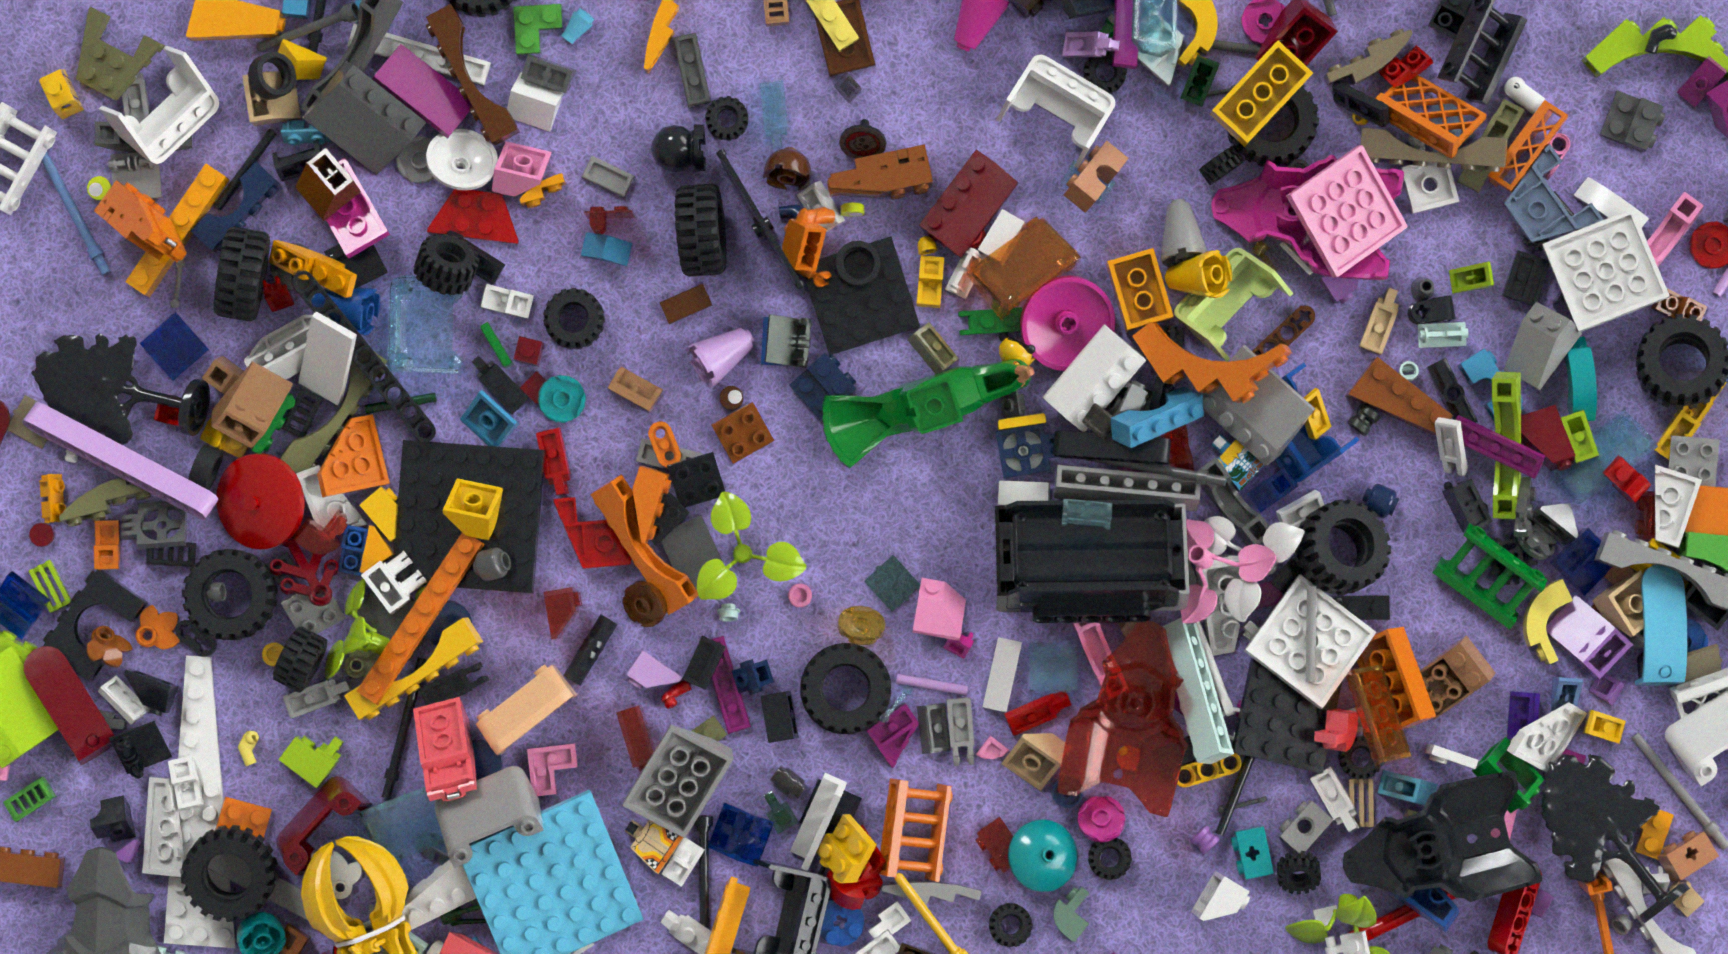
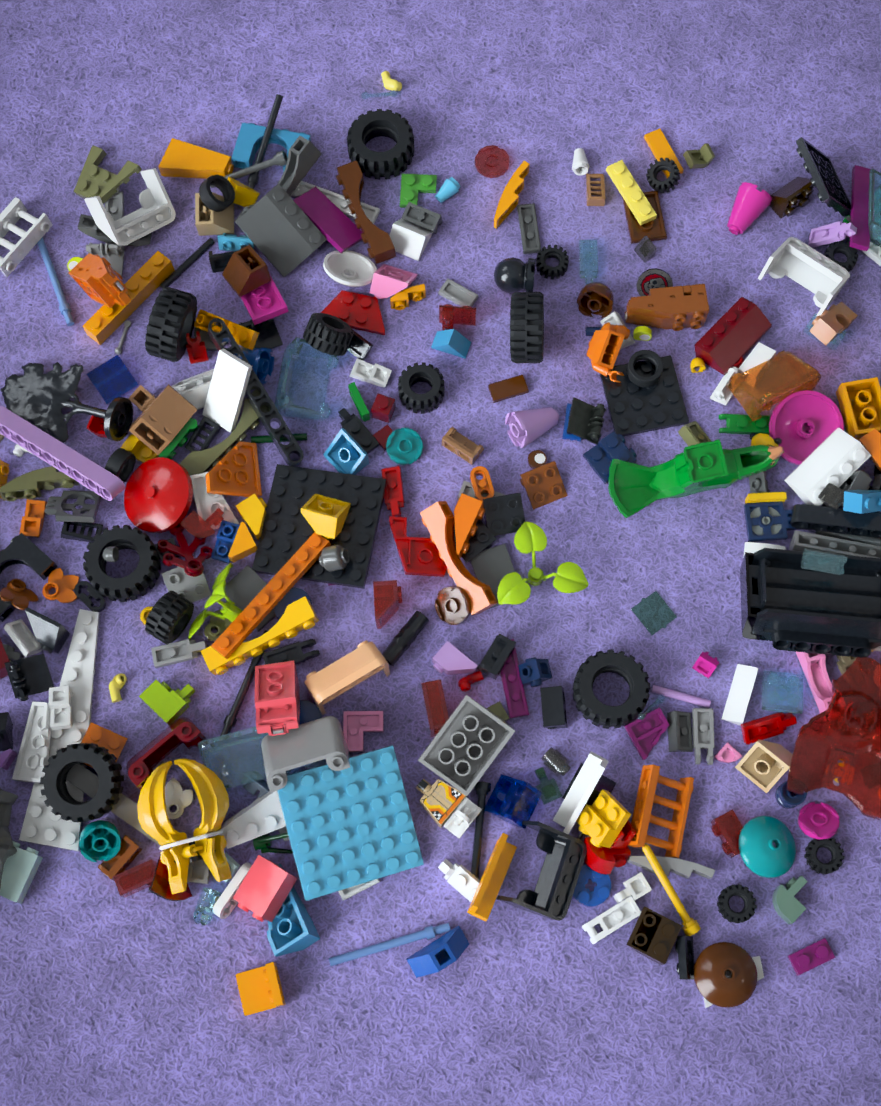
camera: 10 degrees right, 15 degrees down
(61, 93) = (58, 192): yellow torso -> none
(256, 188) = (194, 275): dark blue arch -> none
(385, 586) = (249, 572): white brick -> none
(412, 161) = (313, 272): light grey tile -> none
(728, 612) = (519, 618): light aqua plate -> none
(762, 225) = (575, 330): black door -> none
(800, 595) = (578, 614): bright pink tile -> none
(861, 625) = (627, 640): clear yellow tile -> none
(930, 281) = (698, 391): yellow slope -> none
(939, 610) = (691, 634): bright pink slope -> none

